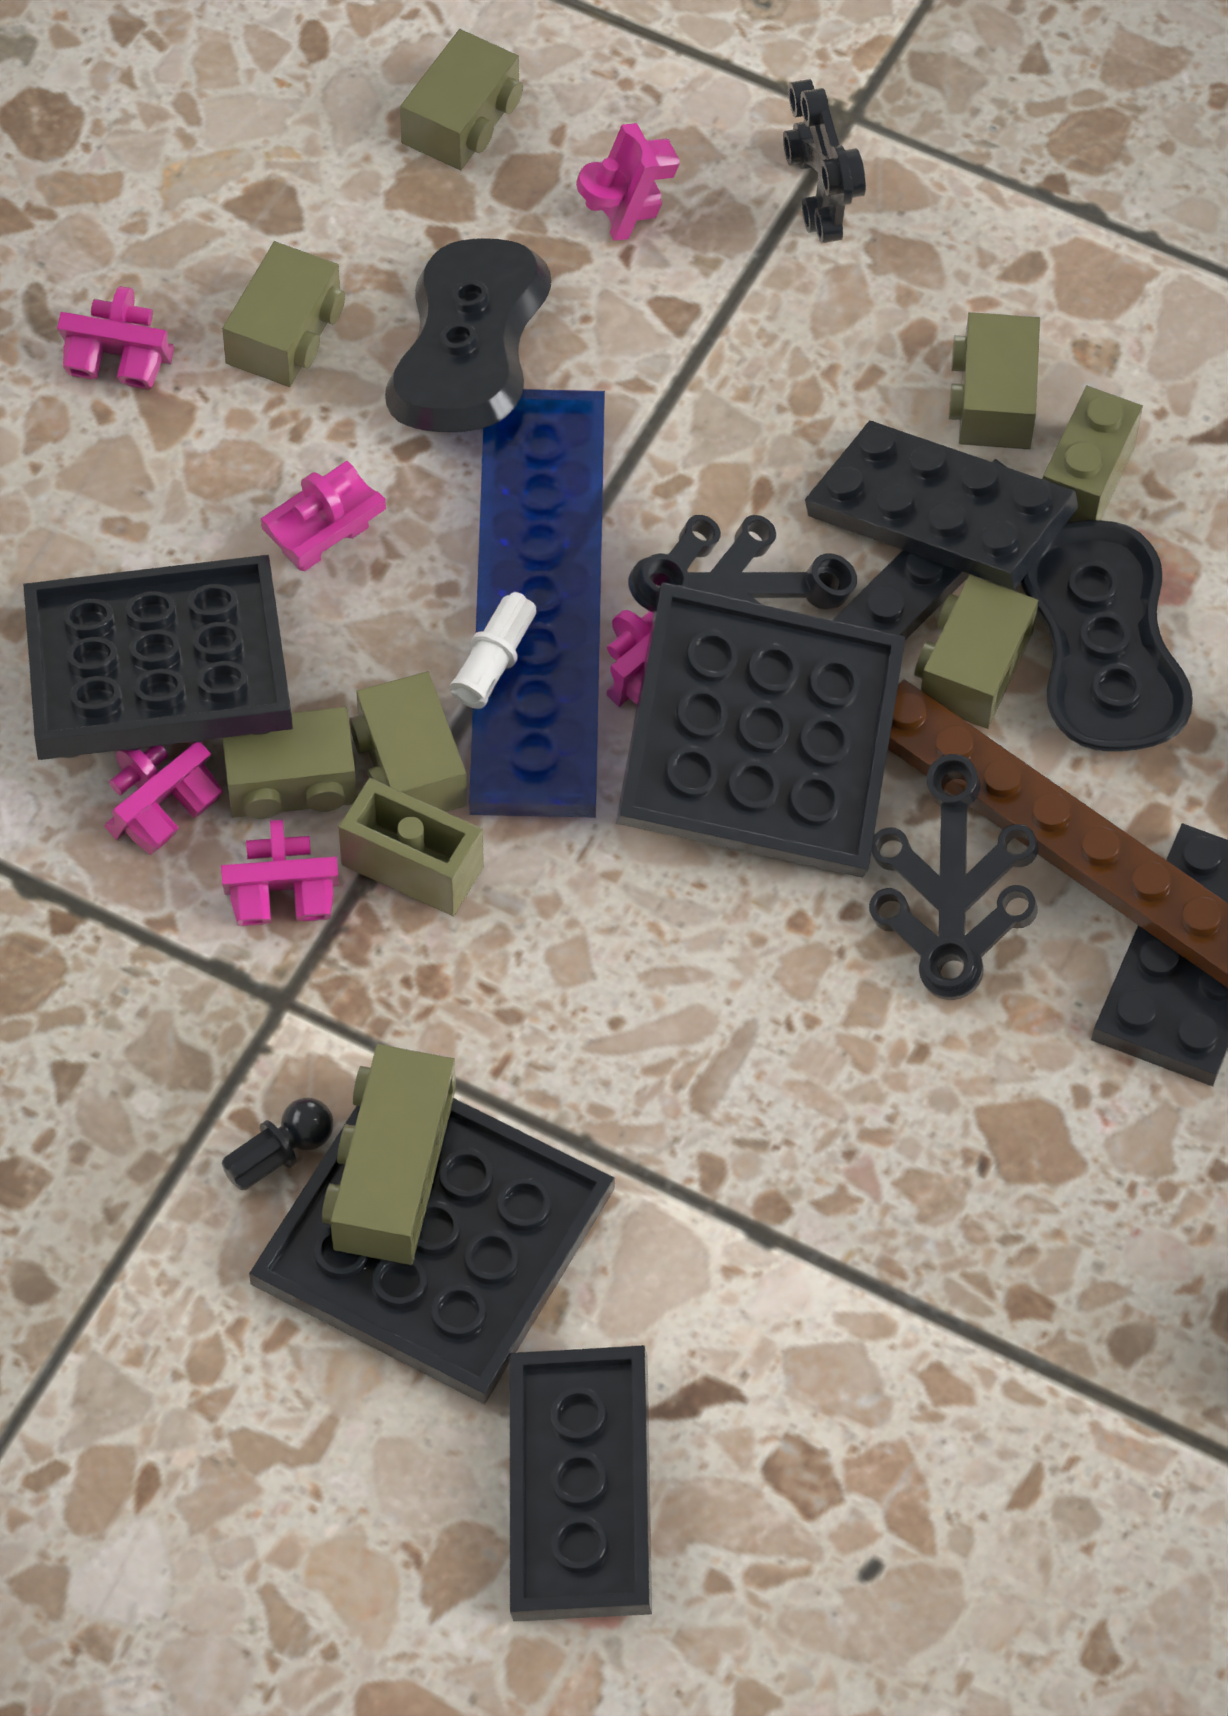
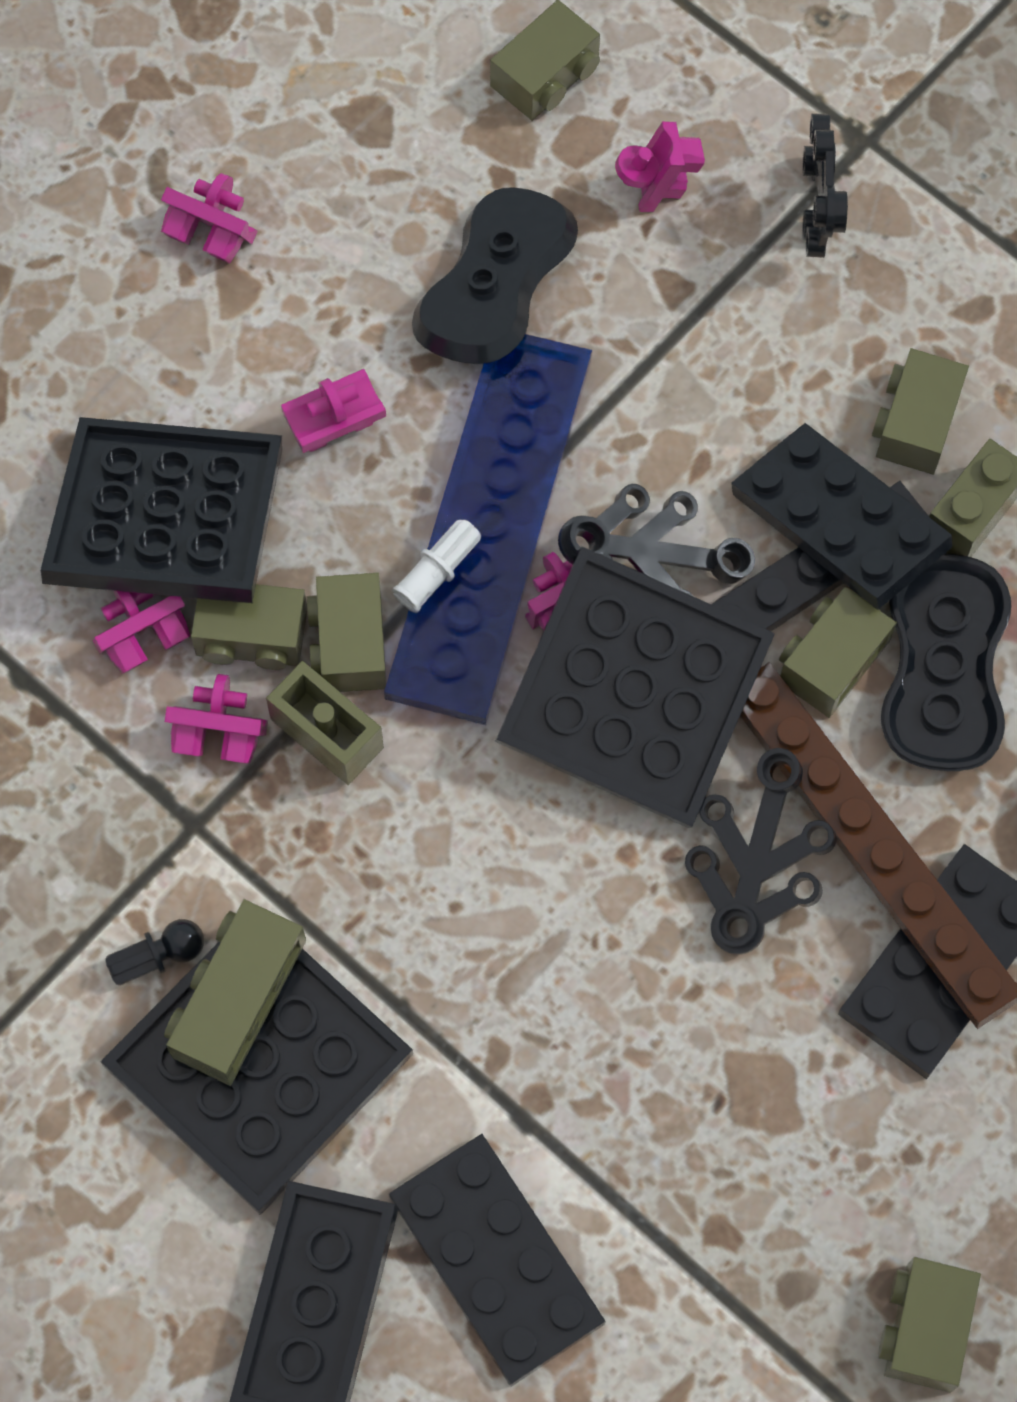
camera: 15 degrees right, 10 degrees up
(283, 314) = (349, 223): olive brick -> none
(778, 1389) = (497, 1259): none -> black plate

